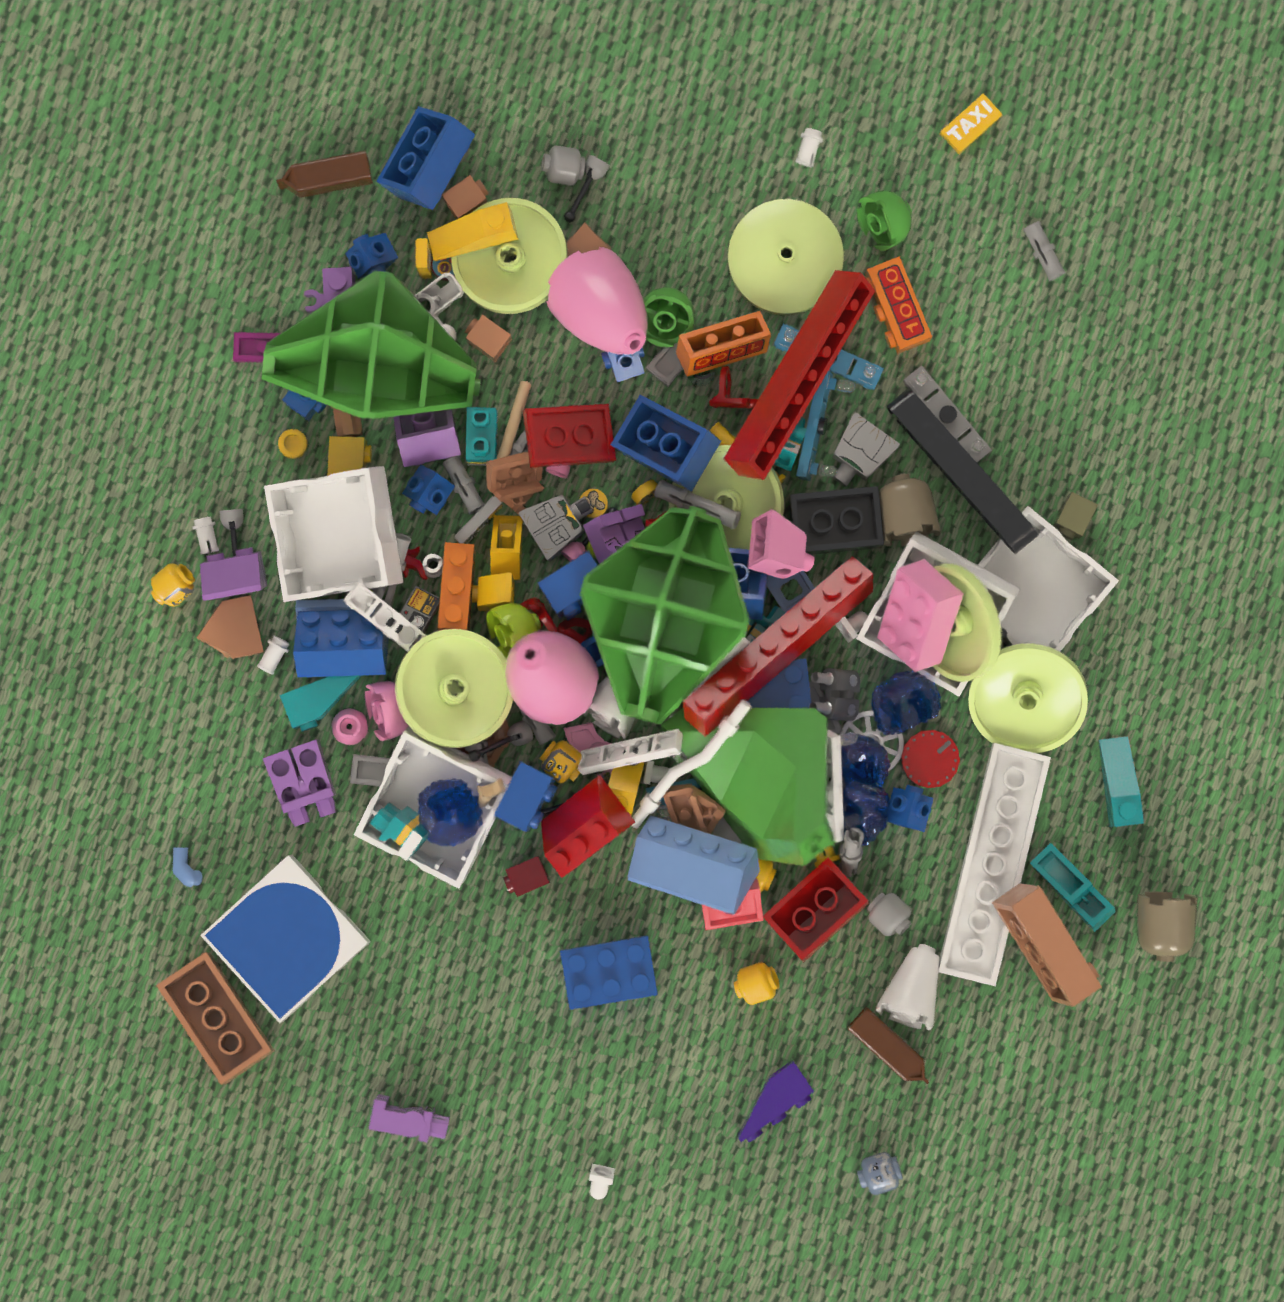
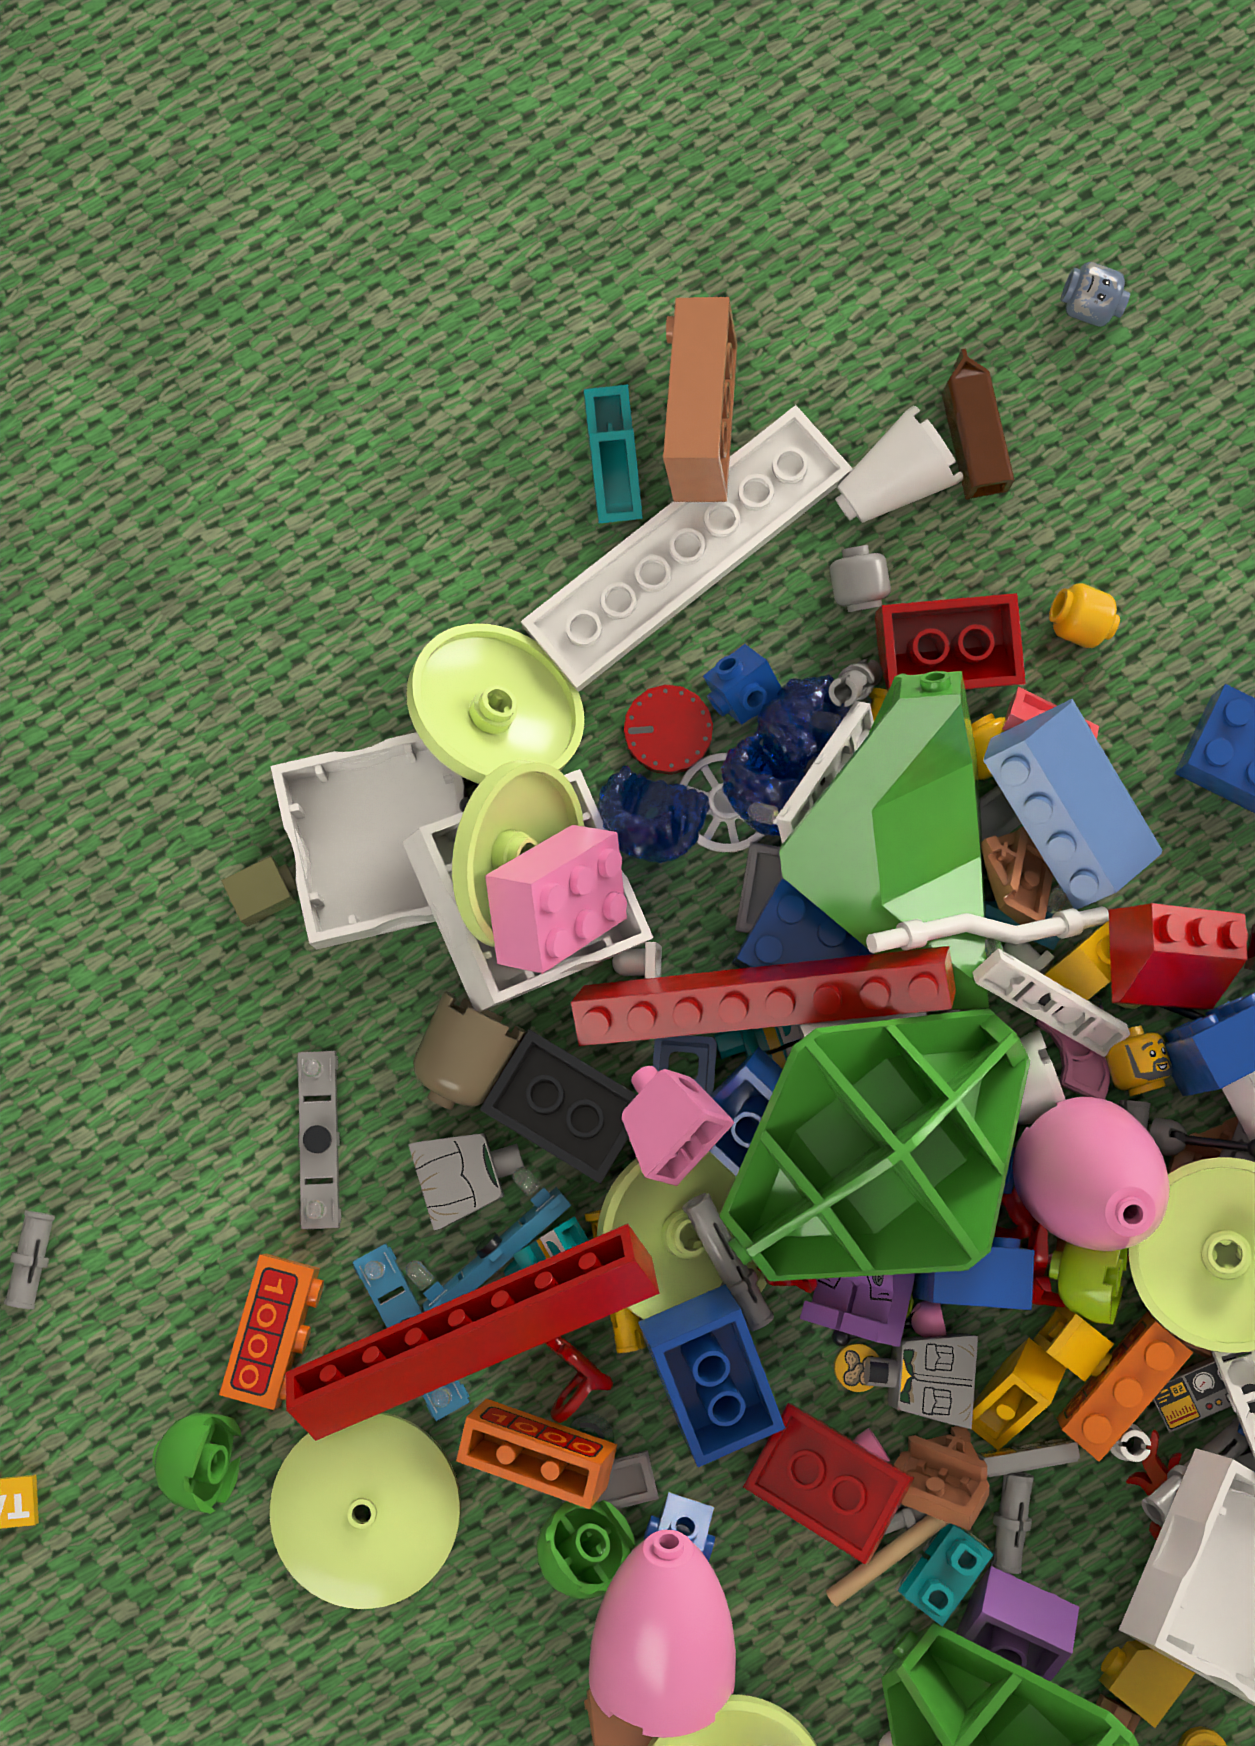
camera: 150 degrees left, 5 degrees down
(427, 490) = (1069, 1550): blue brick -> none
(487, 337) = (841, 1701): nougat brick -> none
(644, 492) = (782, 1331): yellow tile -> none
(779, 1093) = (1146, 468): dark purple slope -> none
(809, 147) = (220, 1638): white pin -> none
(839, 694) = (723, 887): dark grey piece -> none
(962, 471) = (356, 1050): black beam -> none
(1120, 783) = (460, 529): teal slope -> none
(1166, 924) = (534, 328): dark tan cylinder -> none

